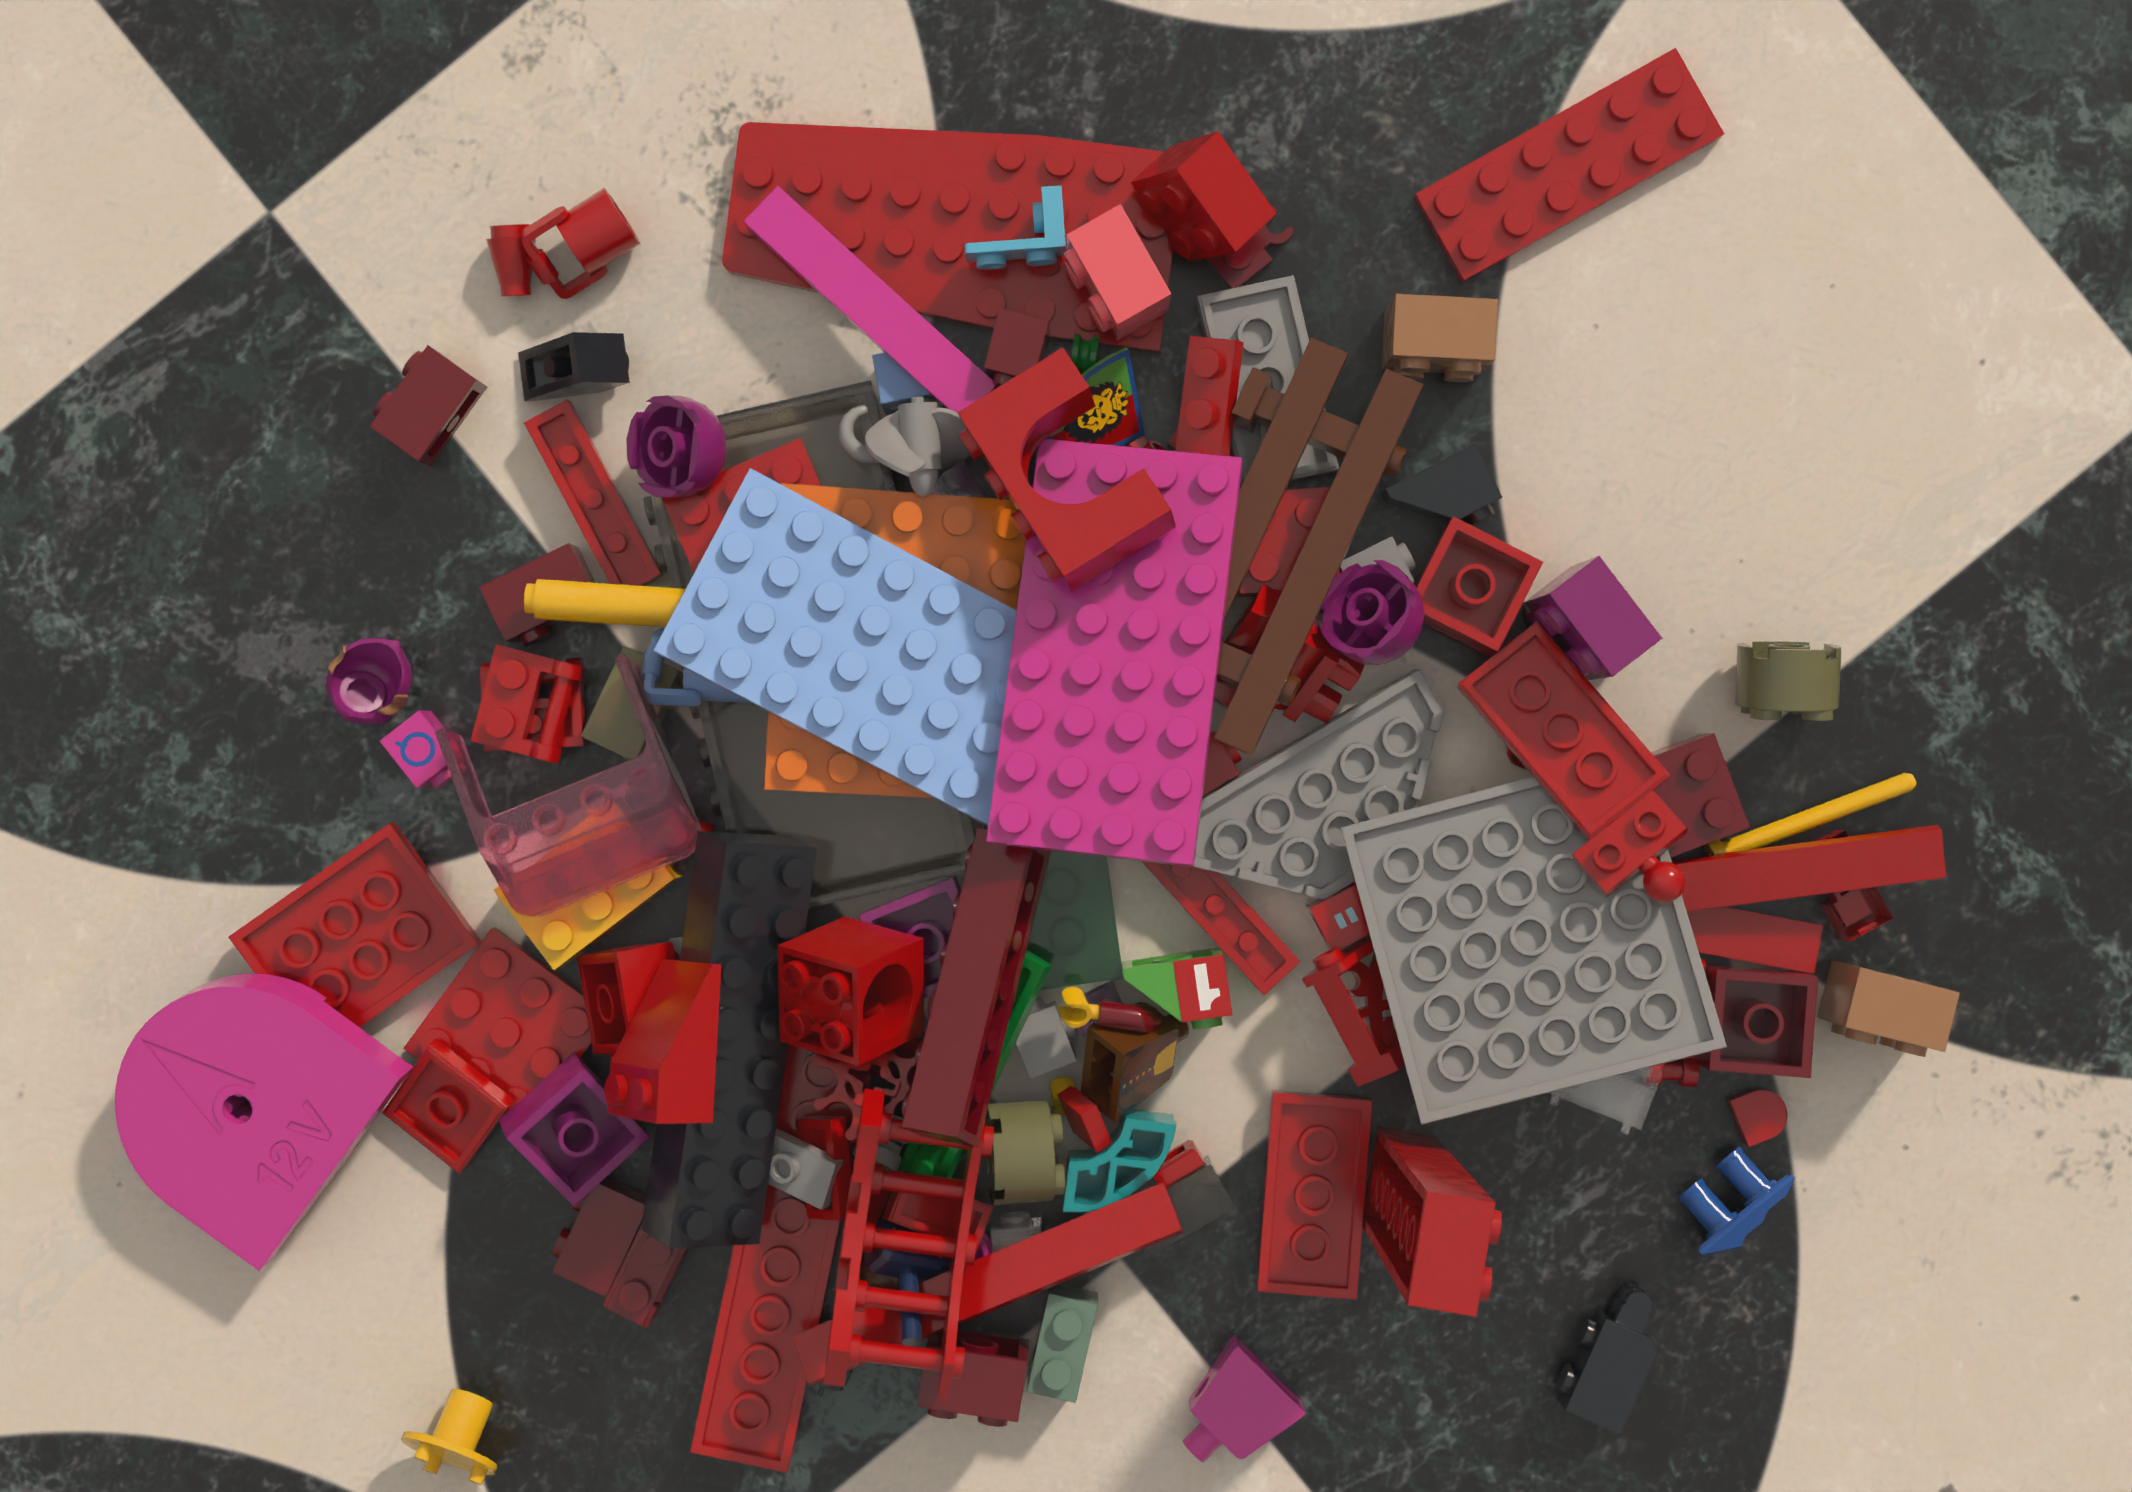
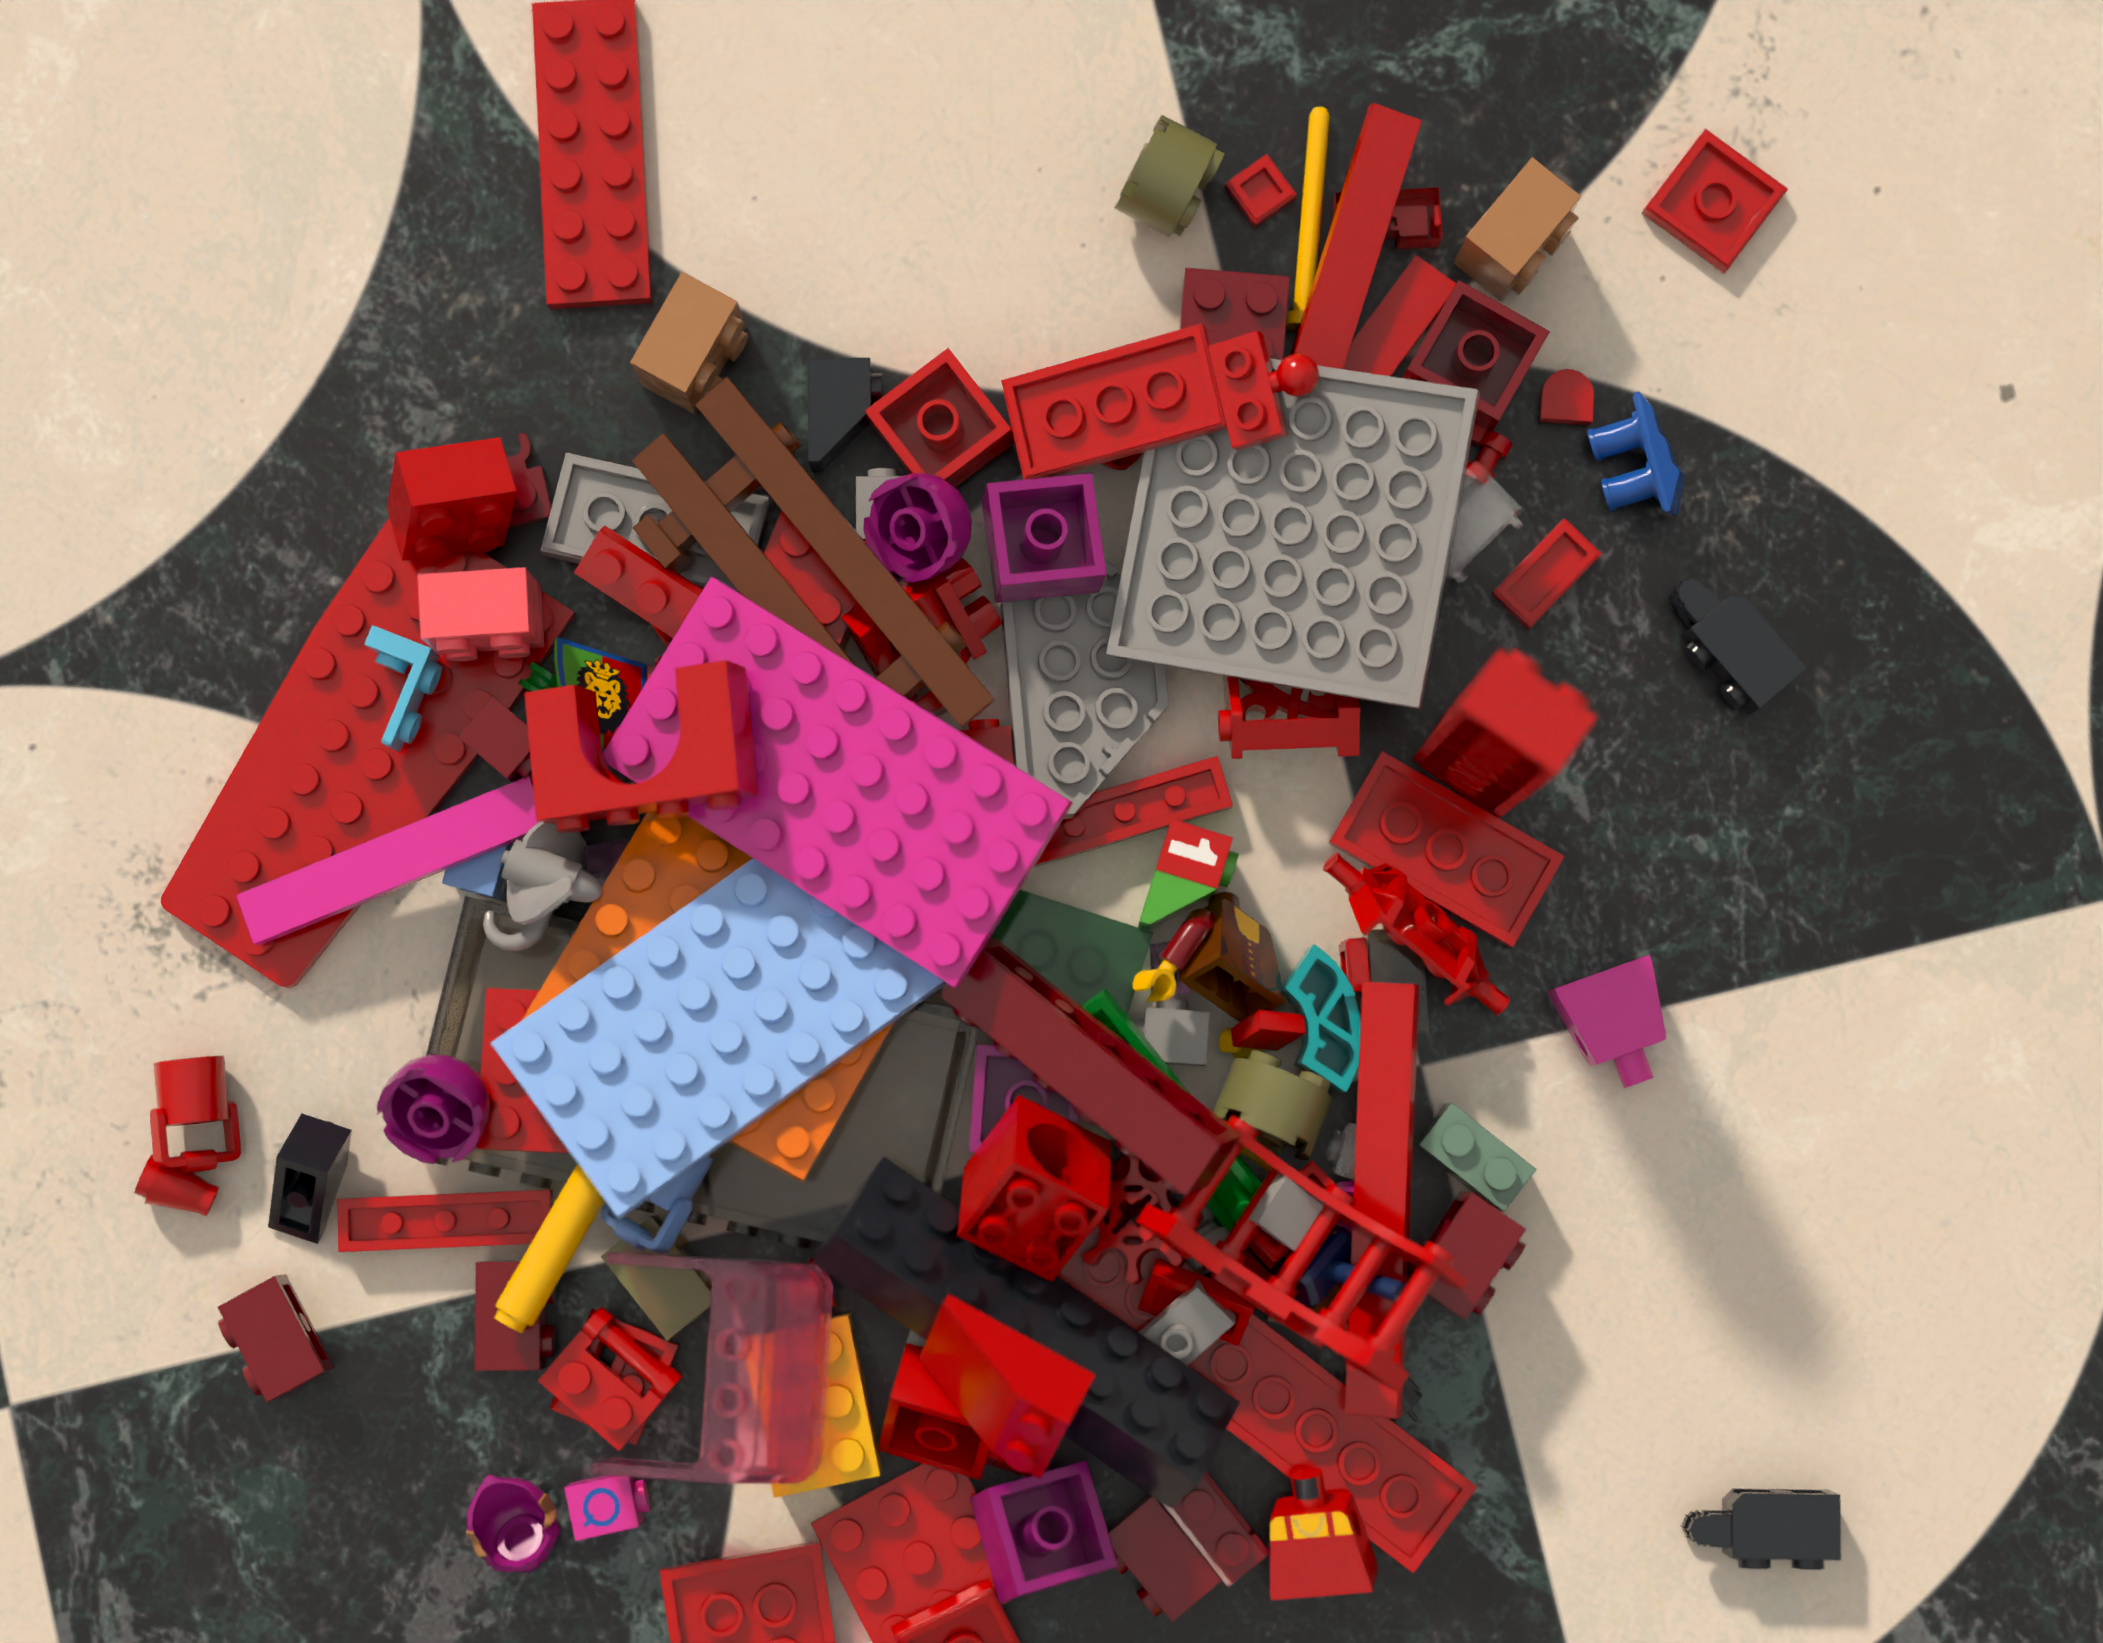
camera: 65 degrees left, 5 degrees down
(675, 1363) = (1318, 1542): none -> red torso
(934, 1211) = (1286, 1212): none -> light grey tile
(1236, 1201) = (1413, 920): none -> red plate
(1340, 917) = (1193, 698): red brick -> none
(1416, 725) = (1043, 538): none -> magenta brick
(1592, 619) = (1023, 326): magenta brick -> none
(1595, 1168) = (1546, 574): none -> red tile
(1814, 762) = (1260, 191): none -> red tile
(1997, 1162) = (1714, 201): none -> red tile

